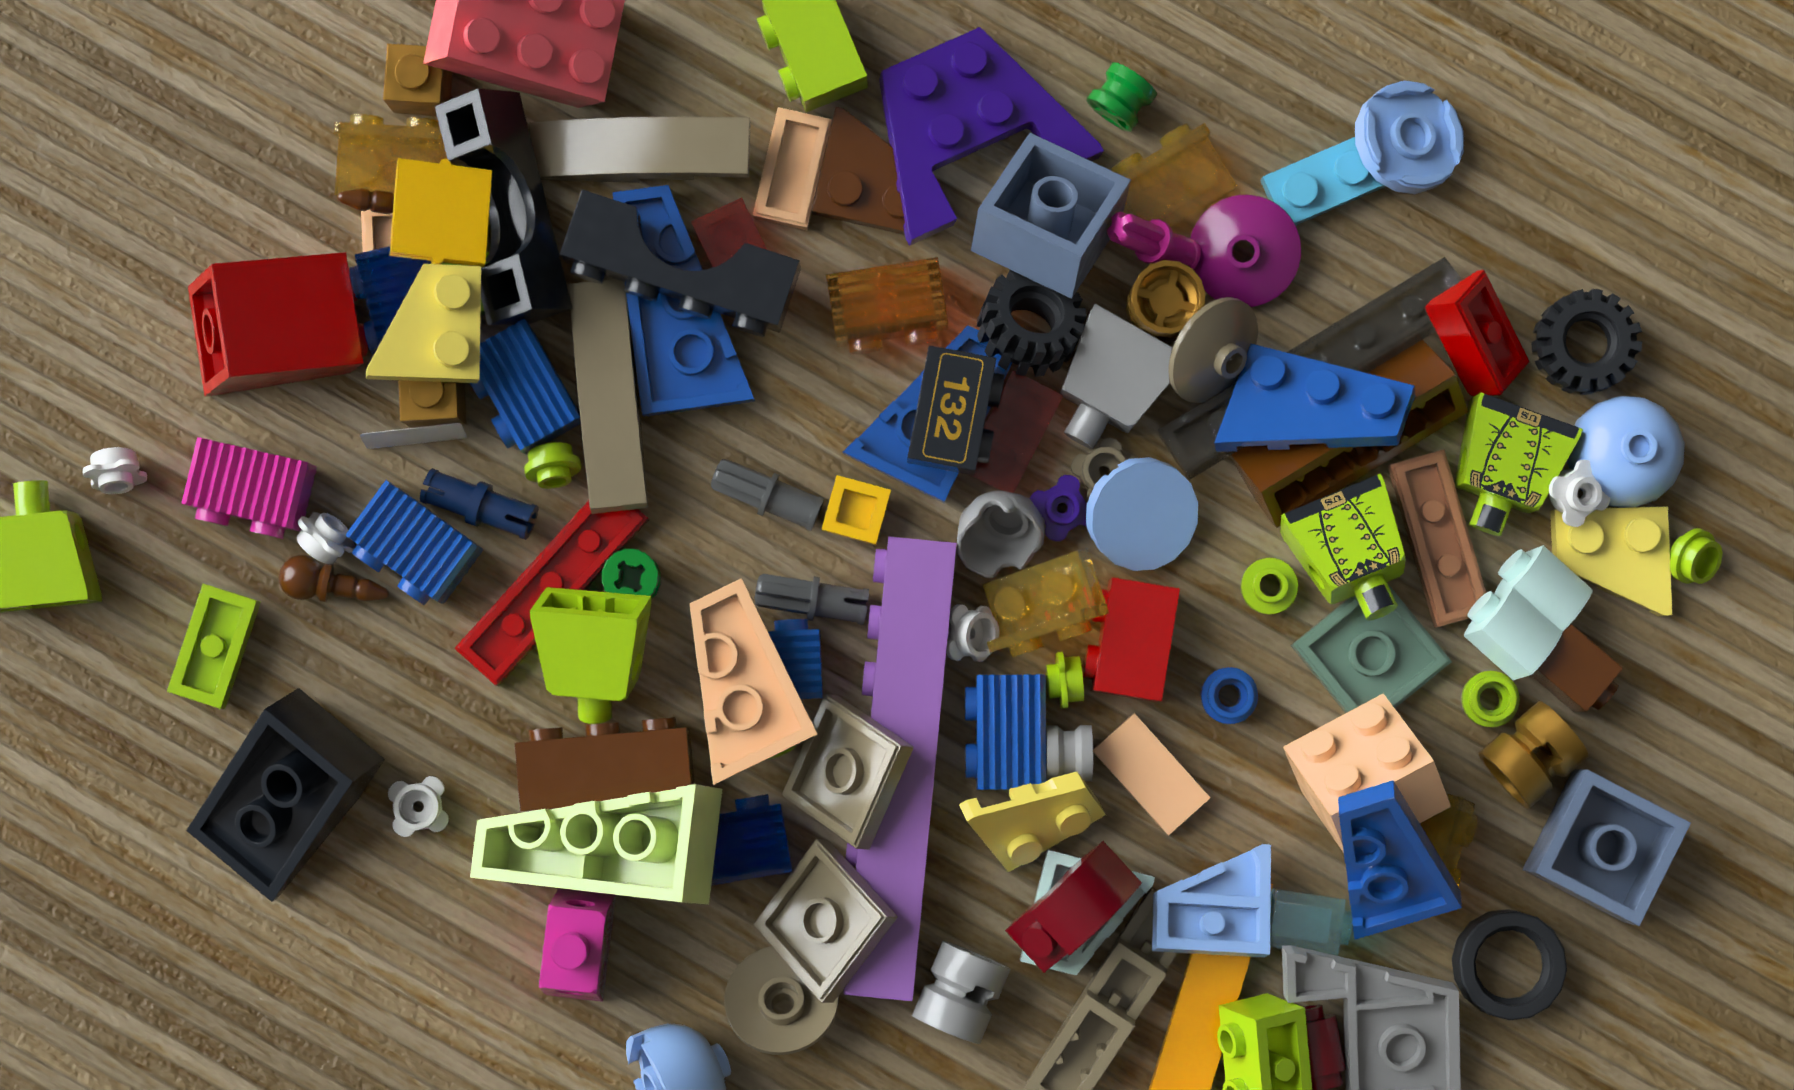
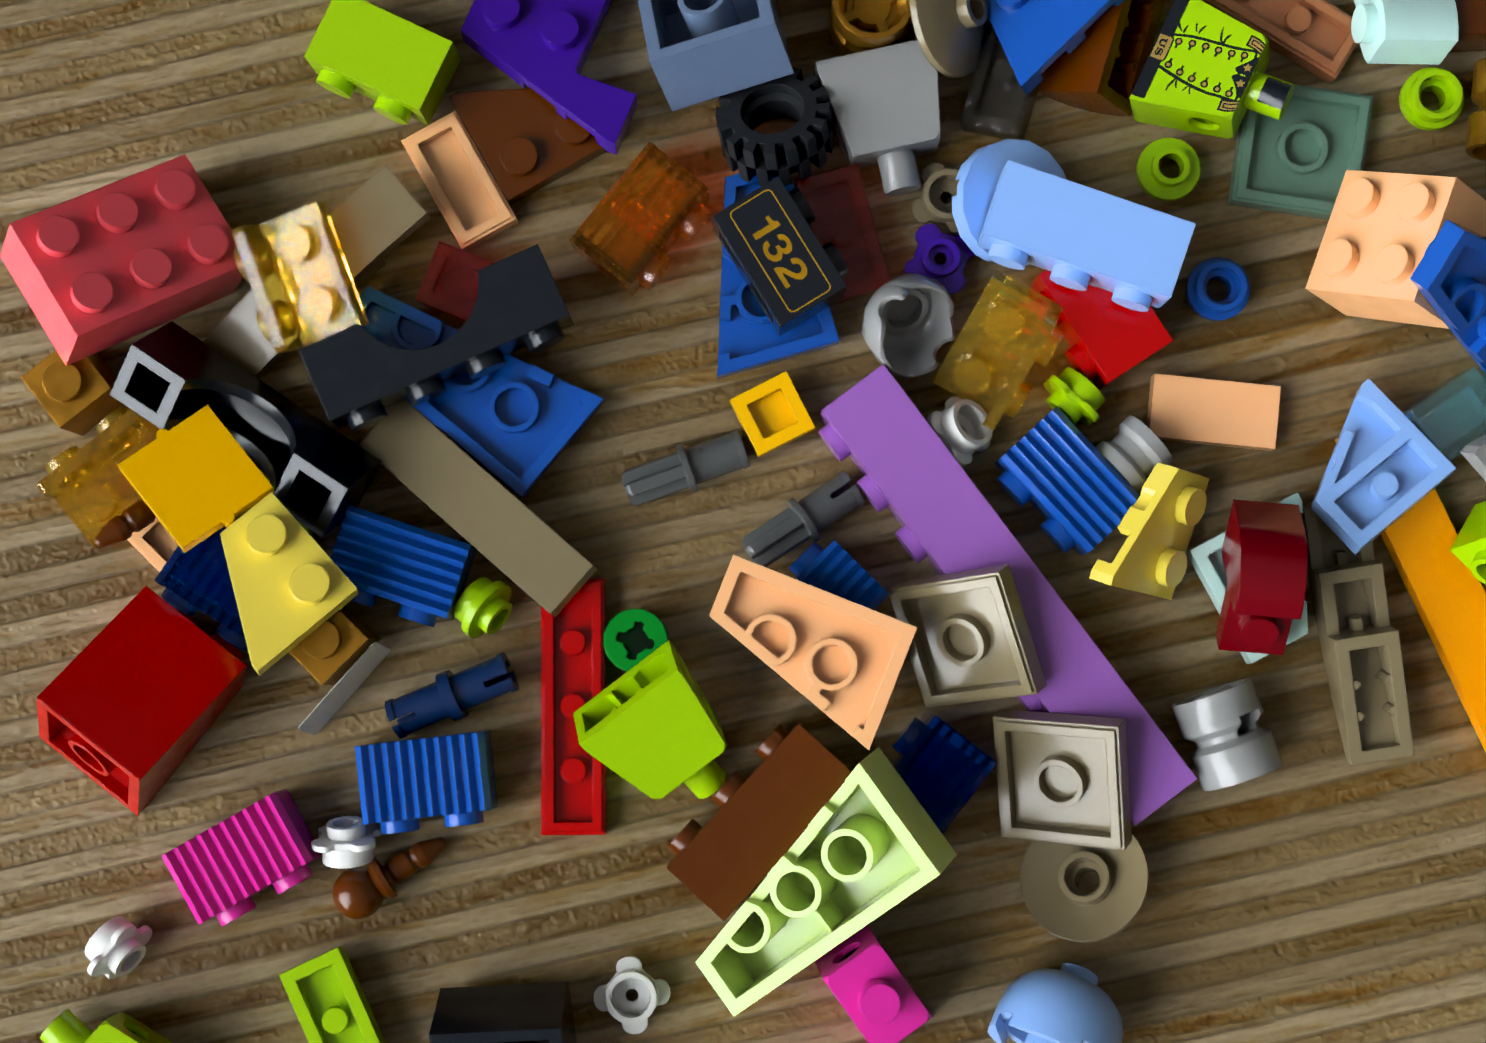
camera: 40 degrees left, 0 degrees up
(625, 142) = (298, 277): none -> clear yellow bracket
(1160, 579) = (1085, 237): none -> light blue brick

